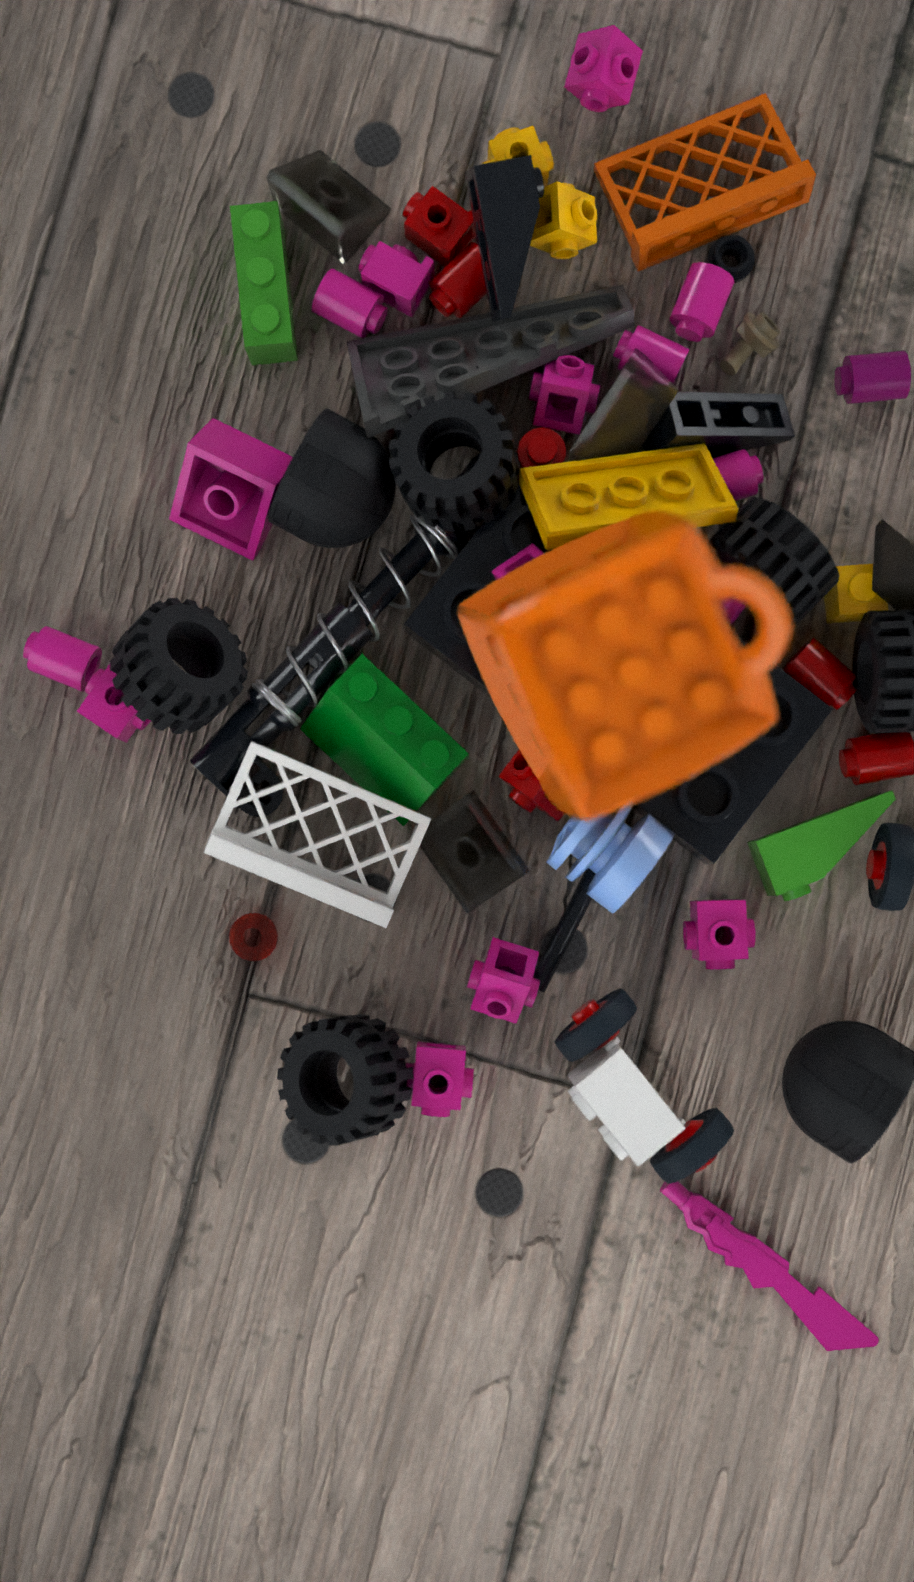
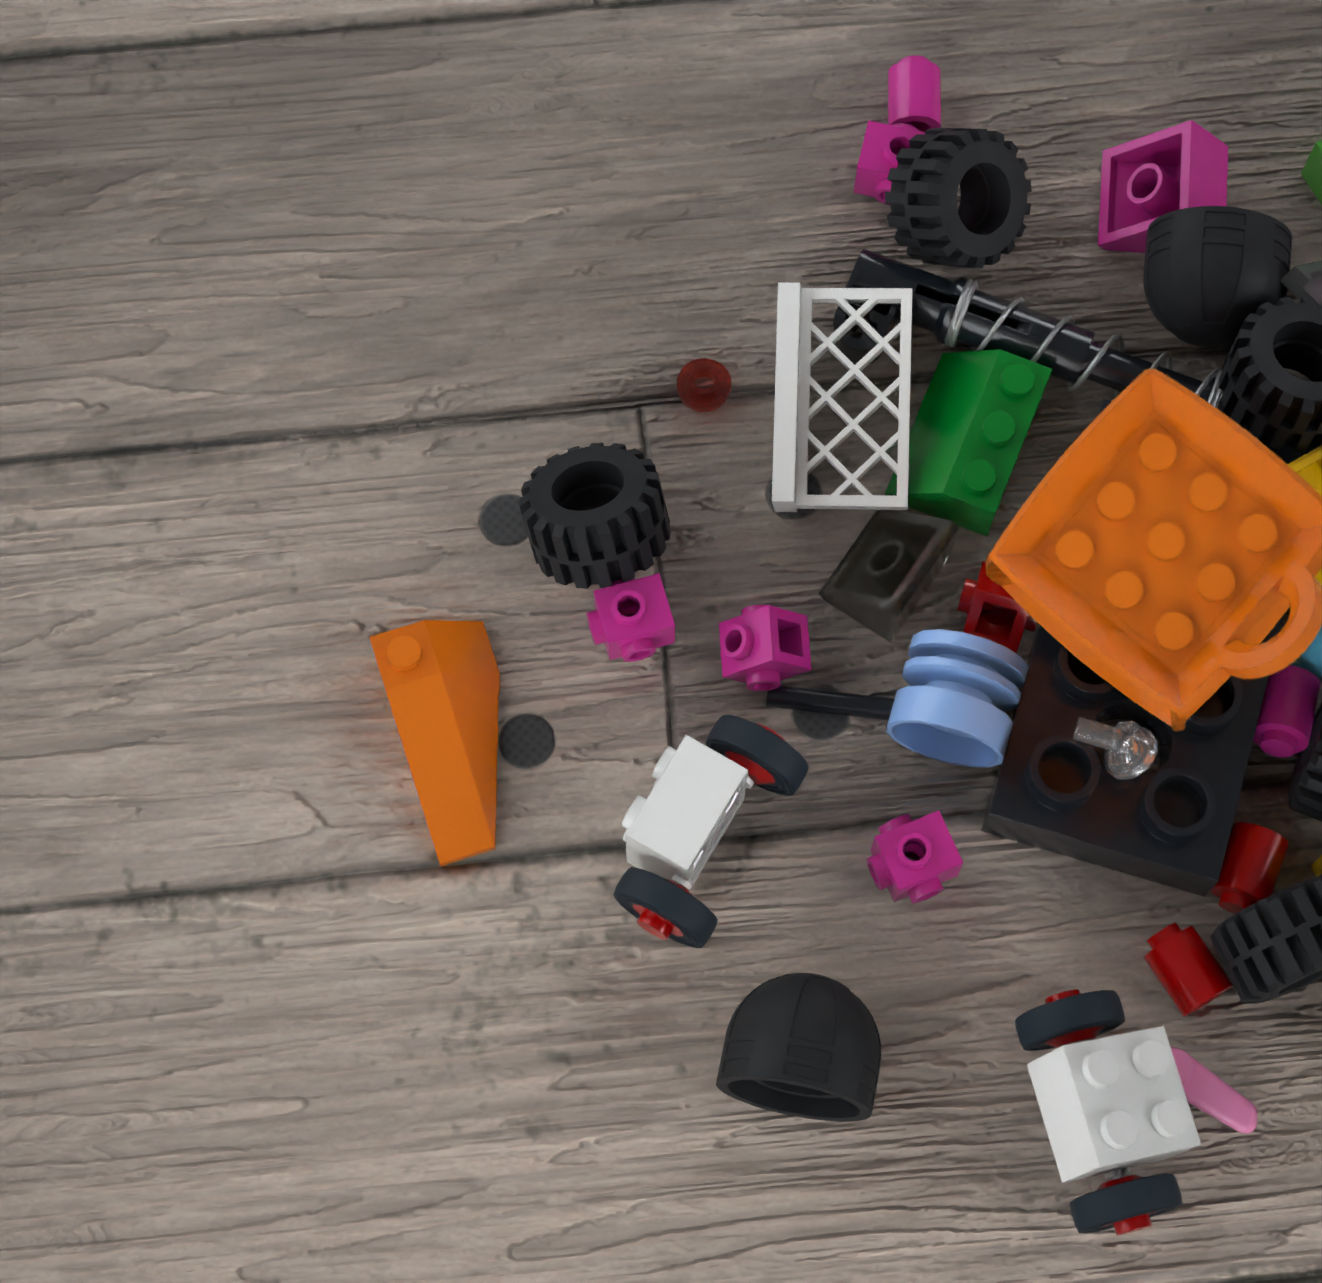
camera: 70 degrees right, 15 degrees down
(466, 1257) = (446, 713): none -> orange wedge
(765, 1268) = (553, 1060): dark pink sword -> none
(810, 849) = (1051, 929): bright green slope -> none

